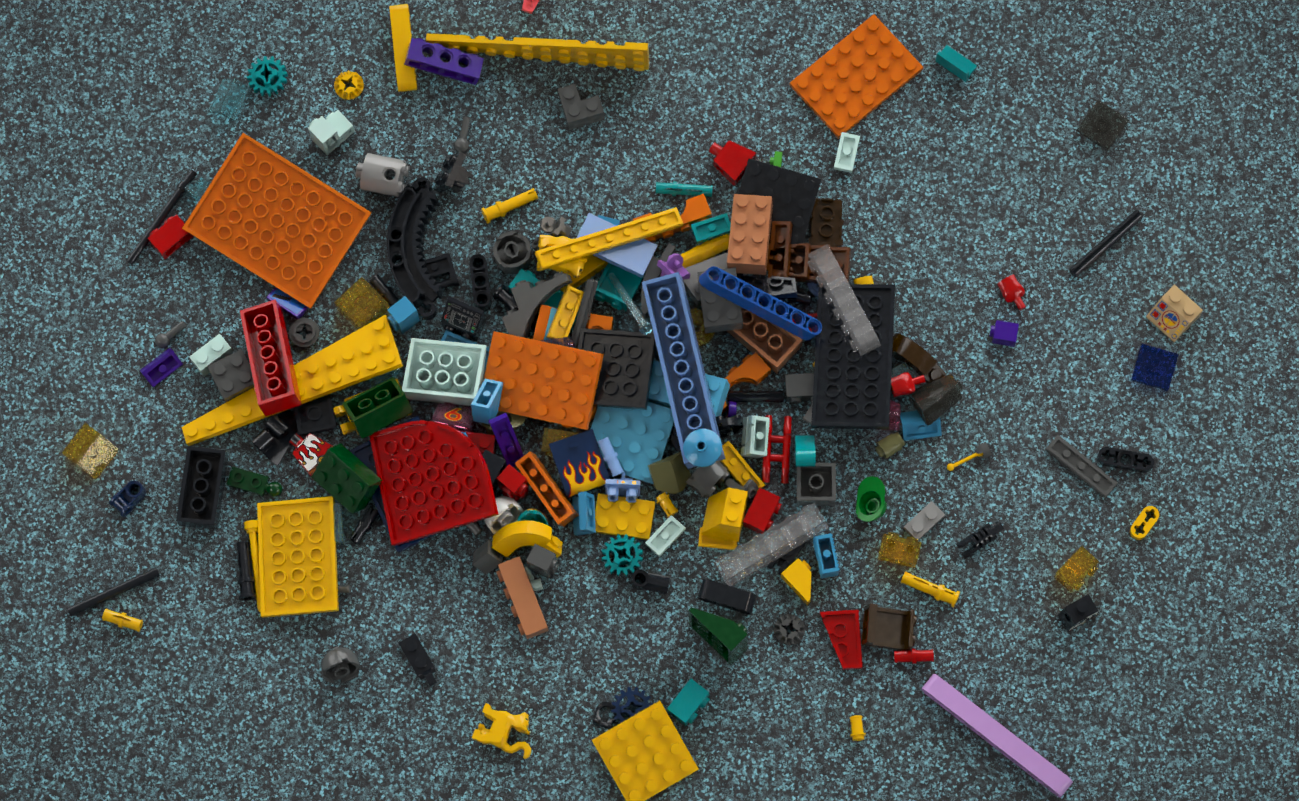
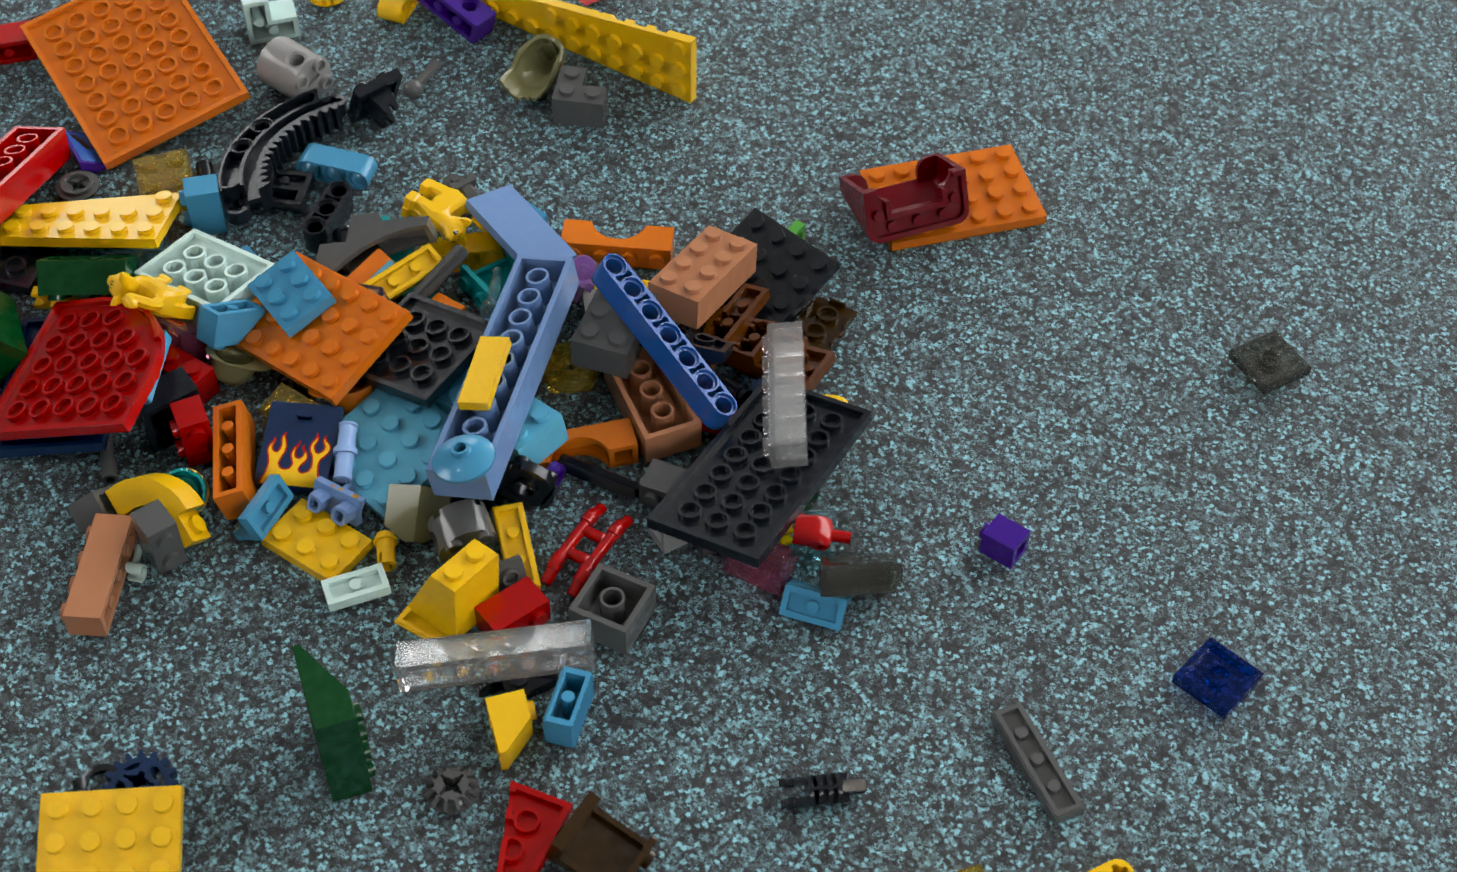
camera: 20 degrees right, 25 degrees down
(436, 409) = (151, 294): none -> yellow animal
(458, 238) = (336, 164): none -> dark azure beam
(463, 319) = (273, 231): black slope -> none
(501, 208) = (410, 158): yellow pin -> none
(506, 439) = (222, 370): dark purple plate -> none
(508, 513) = (150, 455): white cylinder -> none
(512, 252) = (386, 192): dark grey brick -> none
(515, 366) = (291, 293): none -> dark azure plate
(536, 96) = (534, 68): none -> olive hair
(608, 238) = (514, 214): yellow tile -> none
(615, 550) = (278, 584): teal gear -> none
(652, 582) = (291, 632): black piece -> none
(661, 189) = (642, 217): teal pin -> none
(679, 383) = (484, 373): none -> yellow tile
(689, 702) = (229, 818): teal brick -> none
(711, 228) = (649, 263): teal panel -> none
(727, 596) = (388, 701): black beam -> none
(731, 160) = (731, 208): red torso -> none
(755, 436) = (563, 515): light aqua brick -> none
(805, 451) = (620, 554): teal beam -> none
(837, 103) = (911, 207): none -> dark red windscreen
(846, 152) = (892, 263): light aqua plate -> none
(870, 499) = (681, 665): green piece -> none
(889, 445) = (753, 608): olive brick -> none
(899, 550) = (686, 751): clear yellow brick -> none
(917, 358) = (854, 514): dark brown arch -> none
(924, 521) = (748, 732): light grey plate -> none
(938, 591) = (714, 836): yellow pin -> none
(955, 63) = (1092, 228): teal panel -> none
(981, 451) = (889, 676): hinge -> none
(1012, 291) = (1042, 497): red piece -> none
(1106, 243) = (1211, 496): black axle -> none
(1139, 466) = (1108, 767): black beam -> none
(1174, 313) = (1281, 617): tan slope -> none

